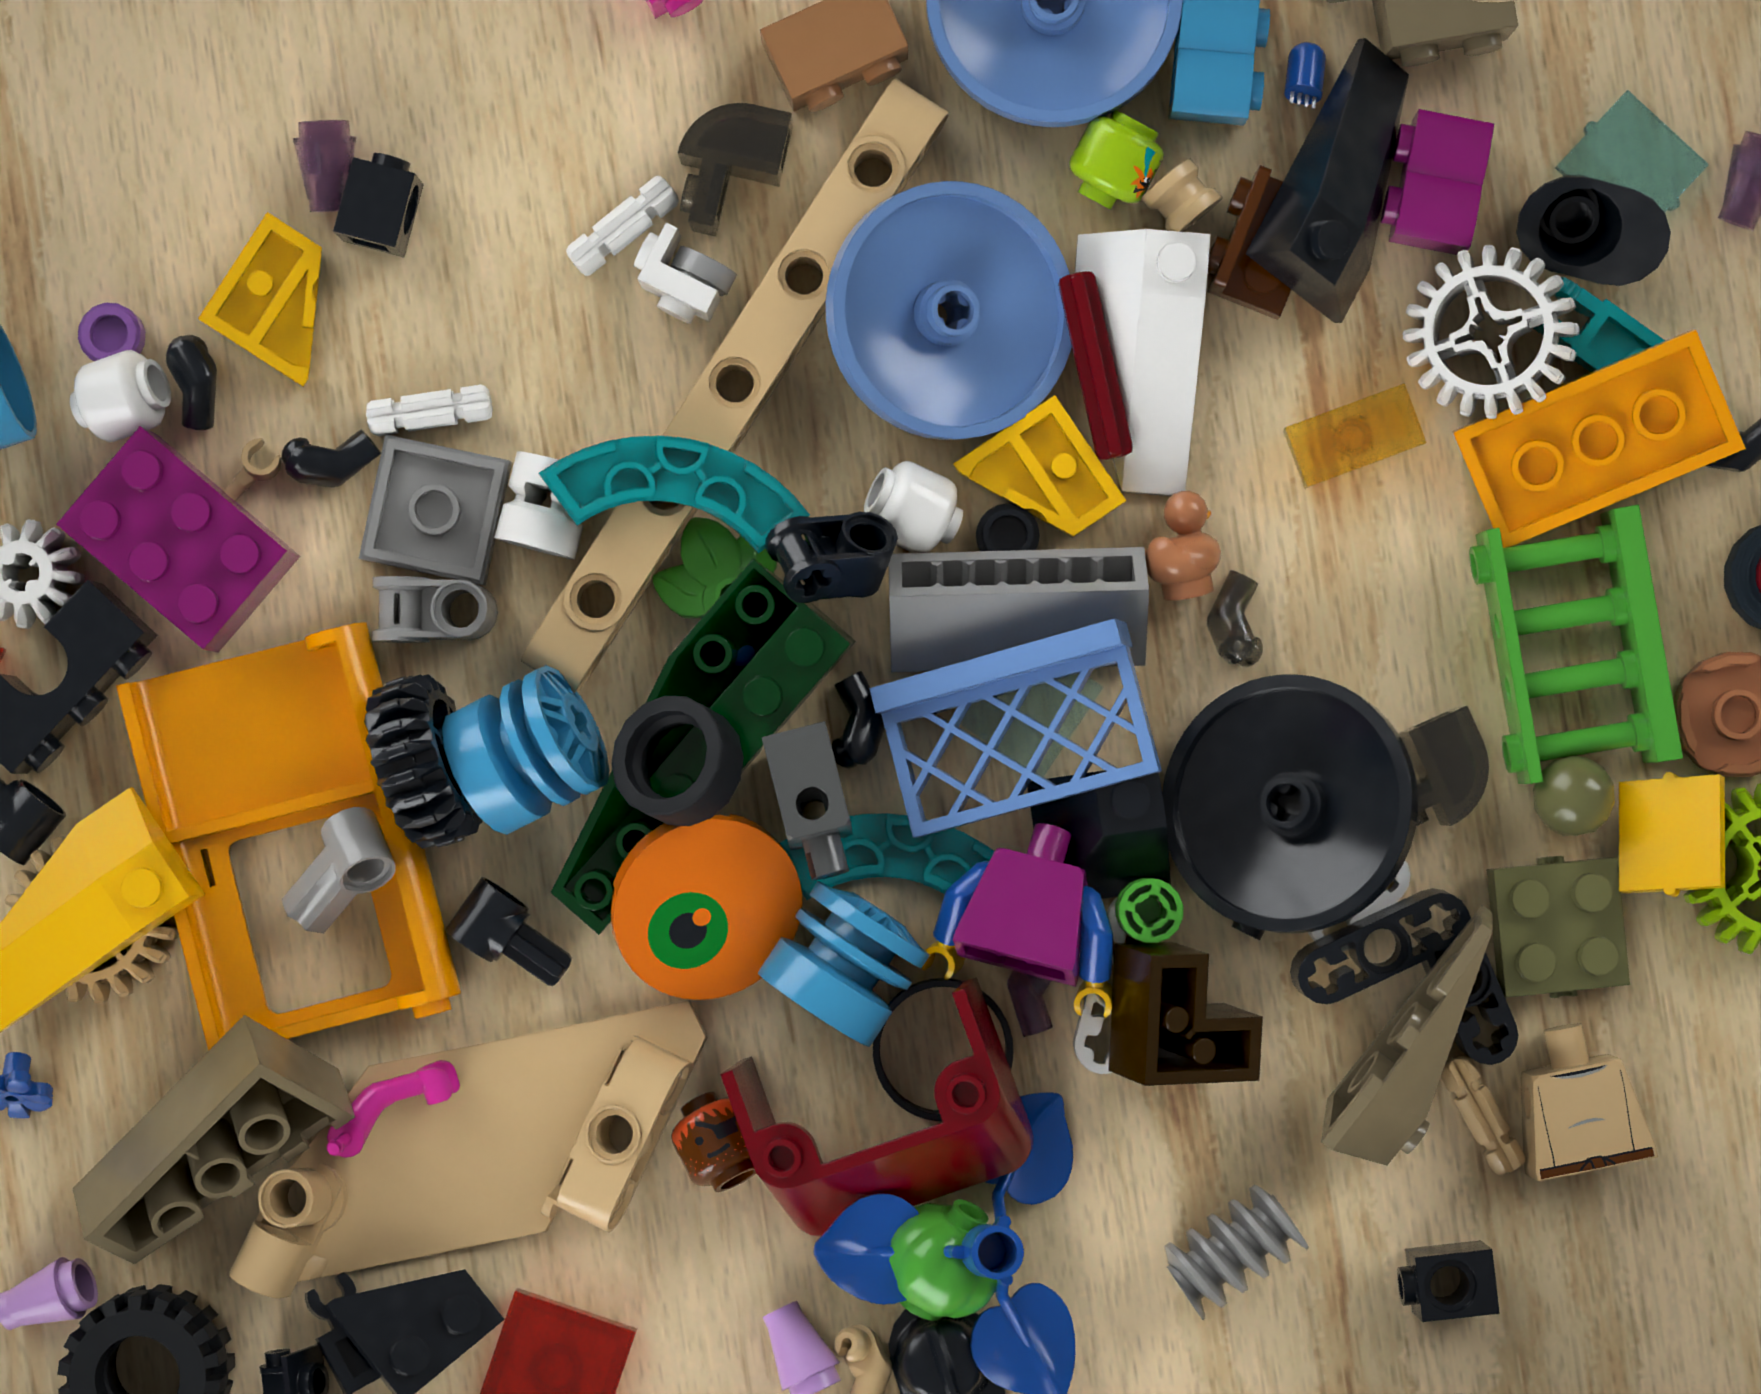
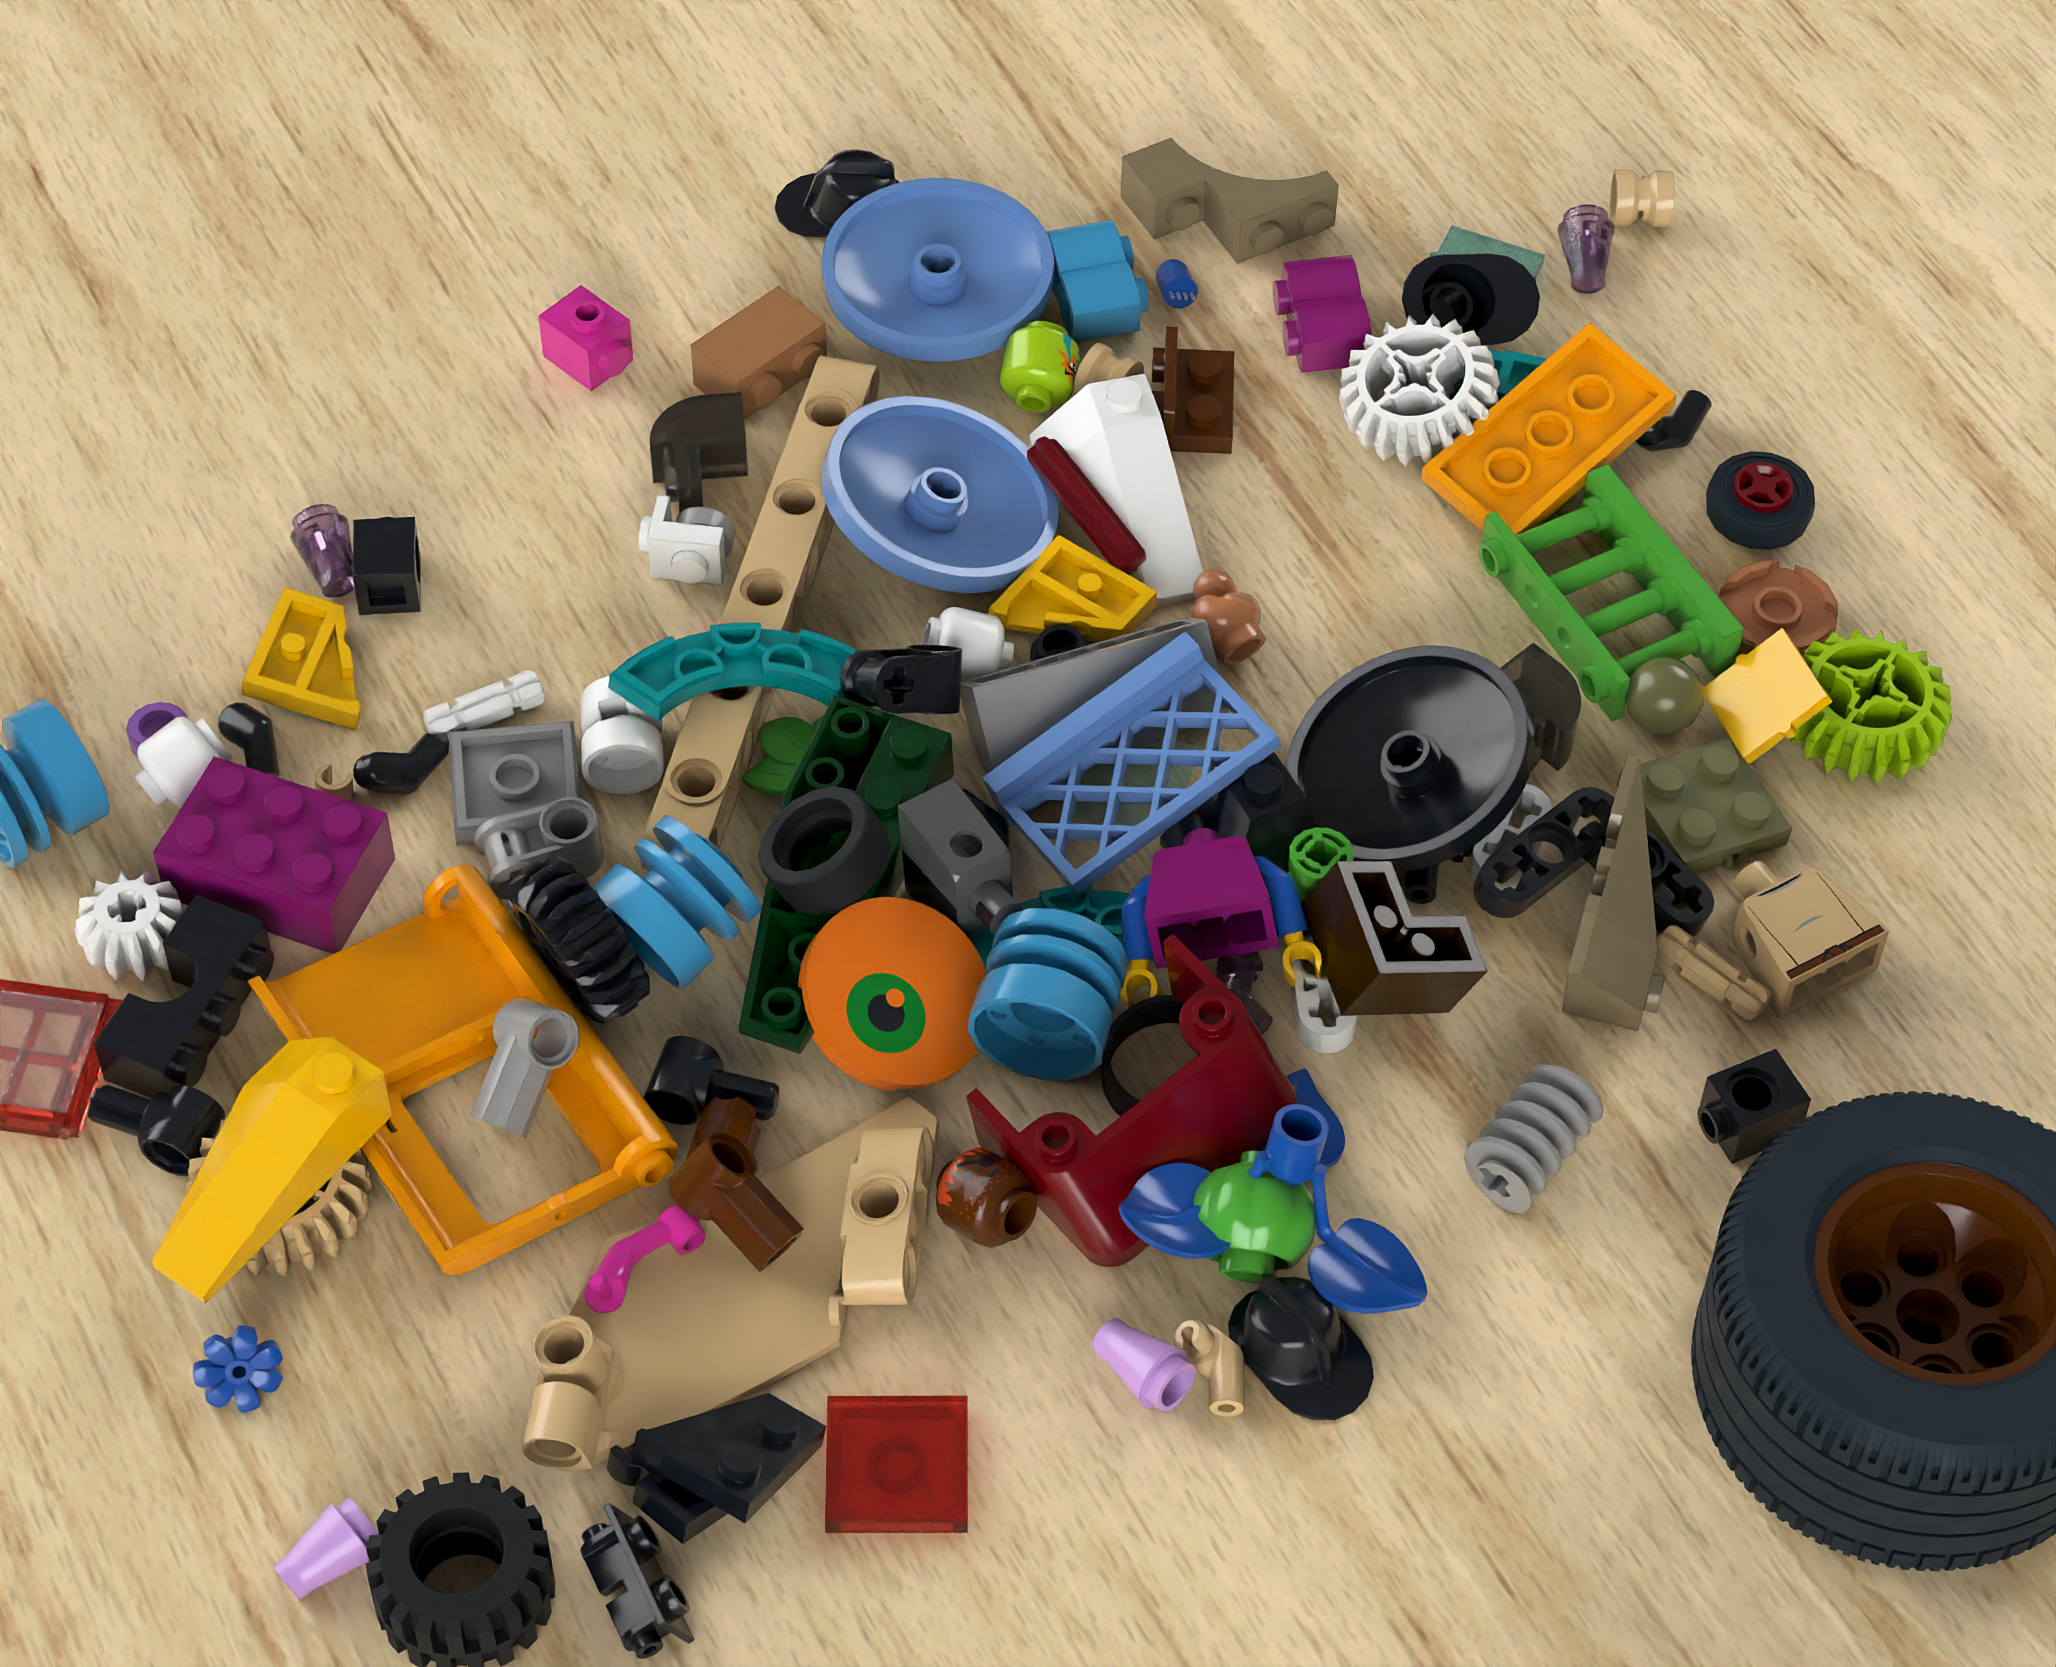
camera: 20 degrees left, 35 degrees down
(208, 1137) = (462, 1324): dark tan wedge -> none
(491, 1084) = (722, 1186): none -> reddish brown piece
(622, 225) = (614, 530): white axle -> none
(1229, 624) = (1294, 666): clear smoke arm -> none
(1332, 199) = (1237, 341): black wedge -> none
(1354, 436) = (1337, 502): clear yellow plate -> none

